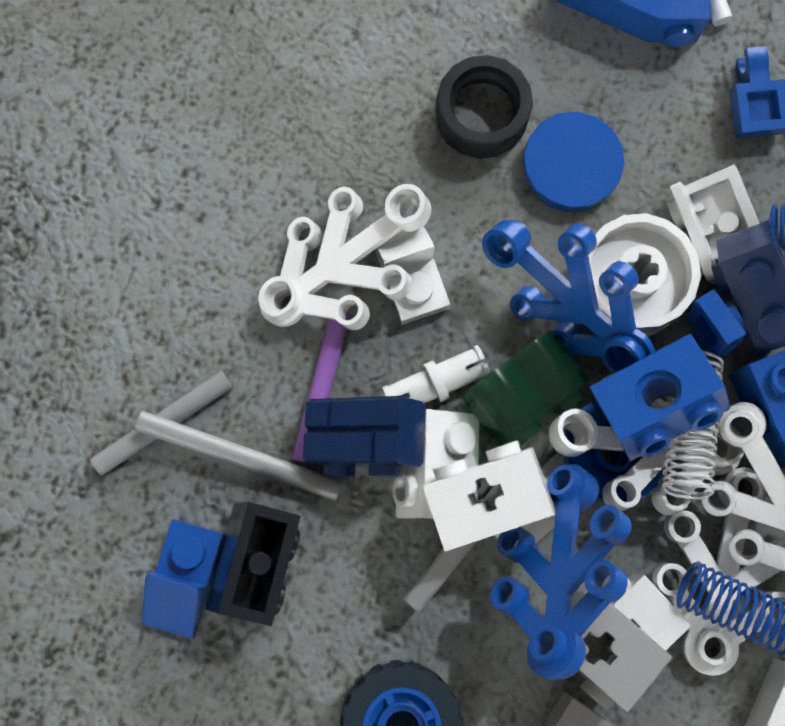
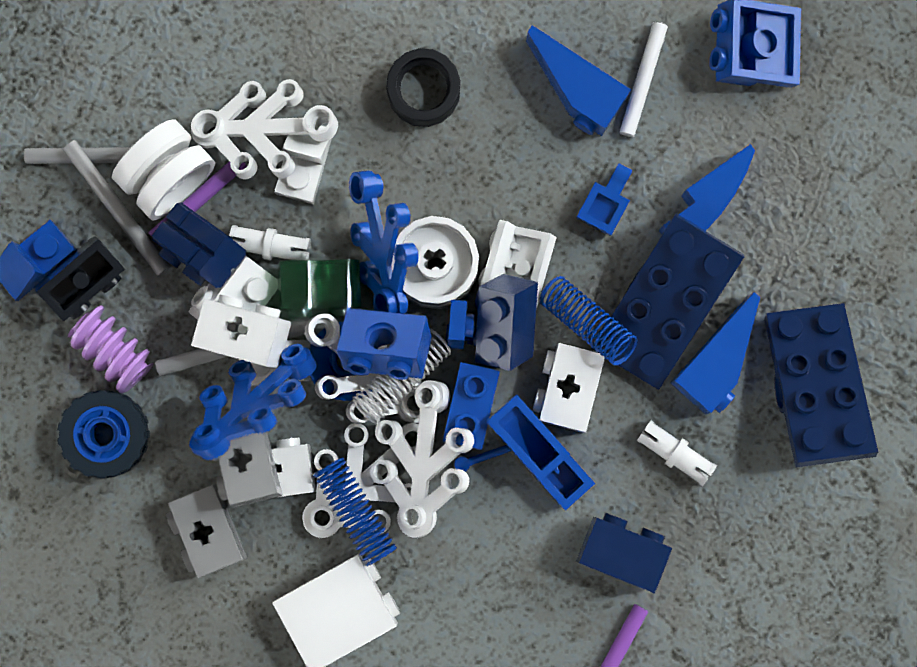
camera: 30 degrees right, 5 degrees up
(266, 374) = (163, 169): none -> white wheel
(341, 620) = (109, 350): none -> lavender piece
(573, 161) = (458, 162): blue tile -> none

